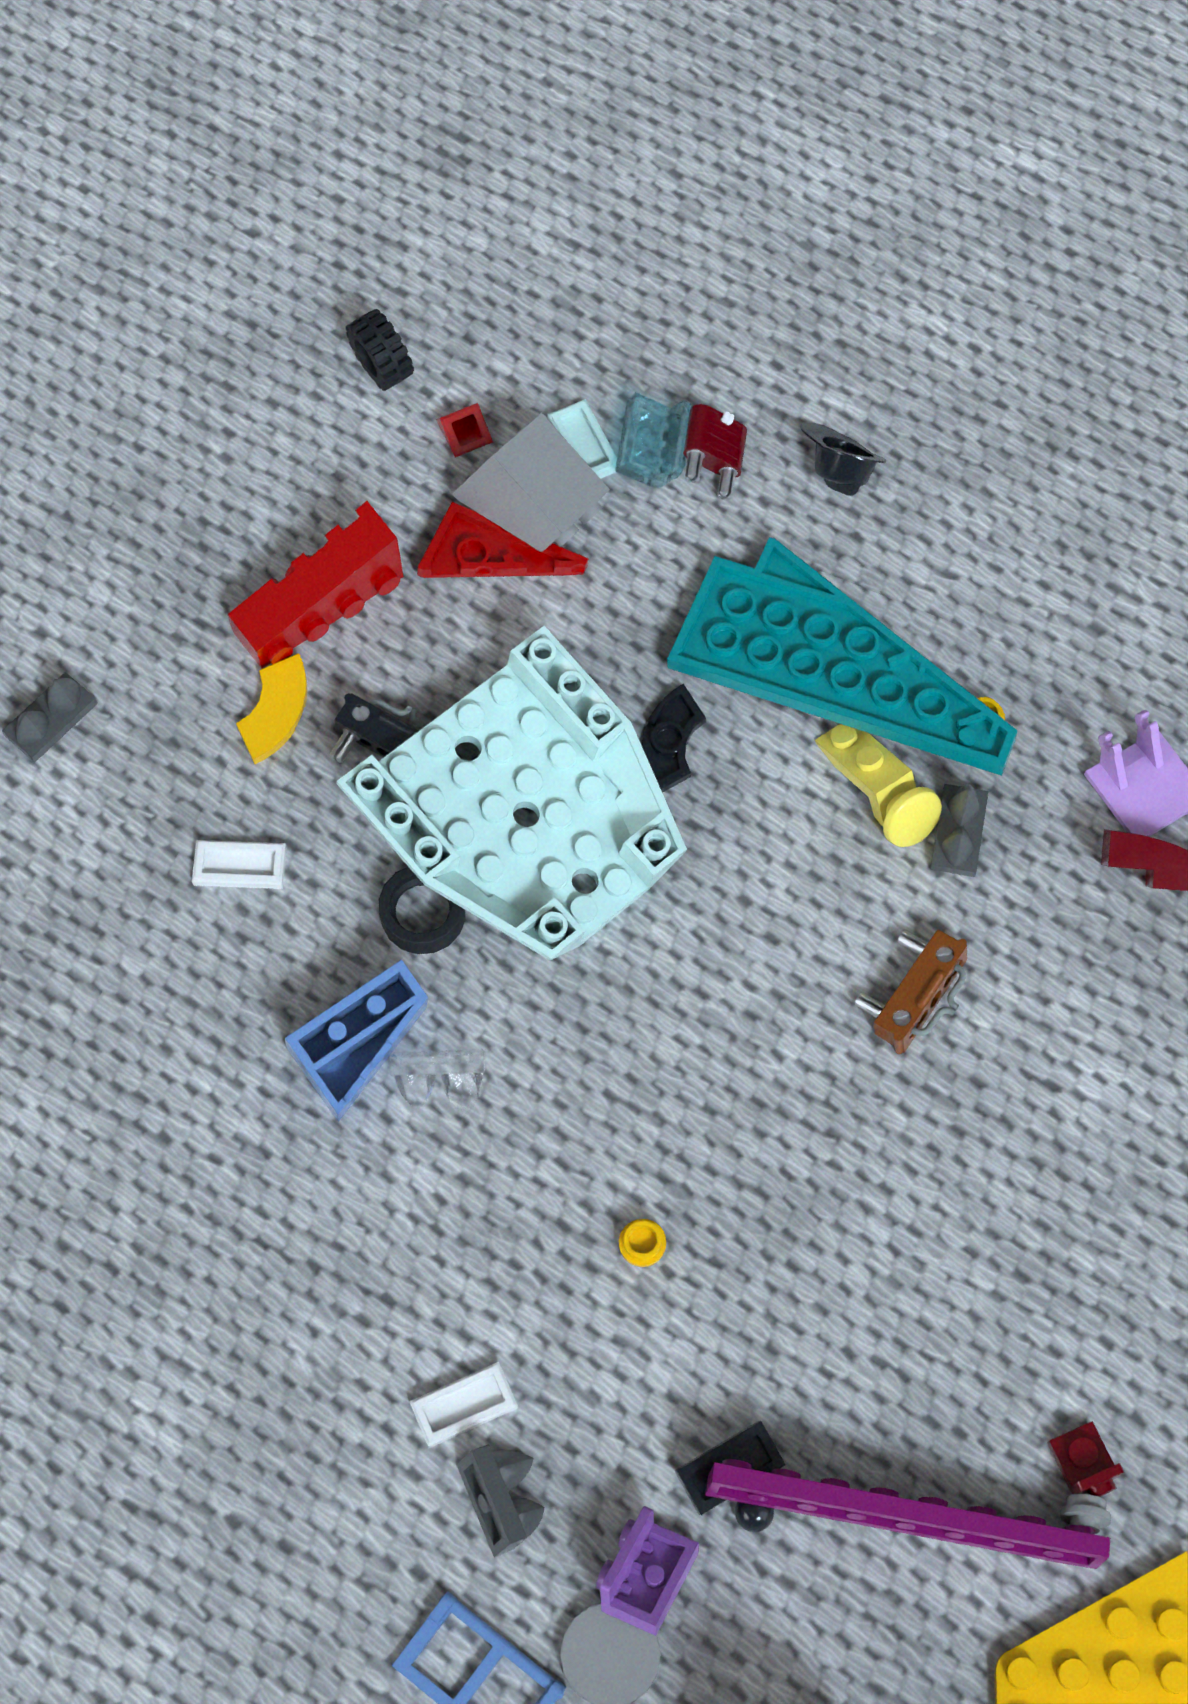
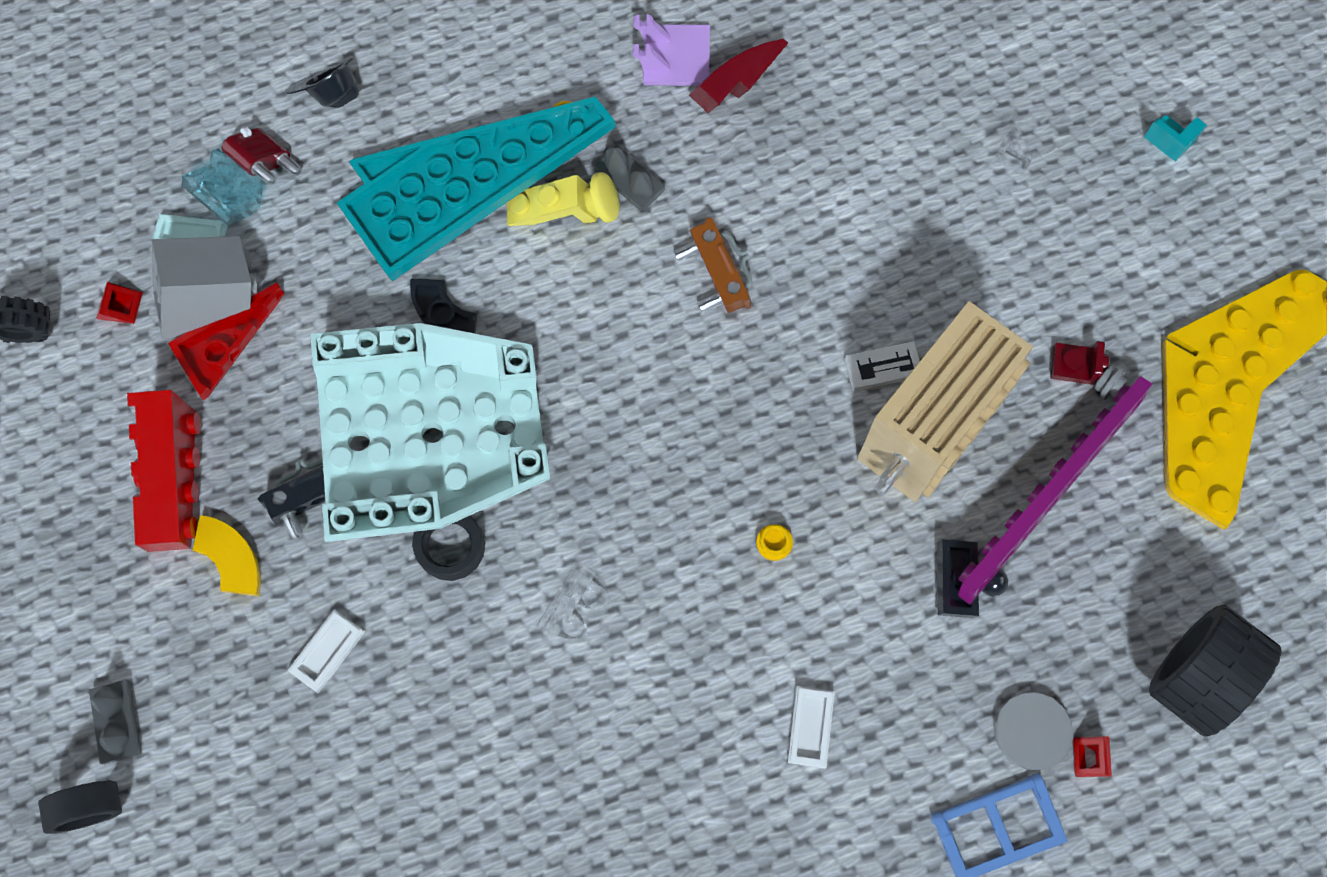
camera: 55 degrees left, 5 degrees up
(357, 1035) = (513, 645): medium blue wedge -> none
(488, 1479) = (903, 747): dark grey tile -> none
(645, 1573) = (1001, 673): medium lavender bracket -> none
(900, 1316) = (944, 403): none -> tan piece
(928, 1241) = (881, 366): none -> white tile

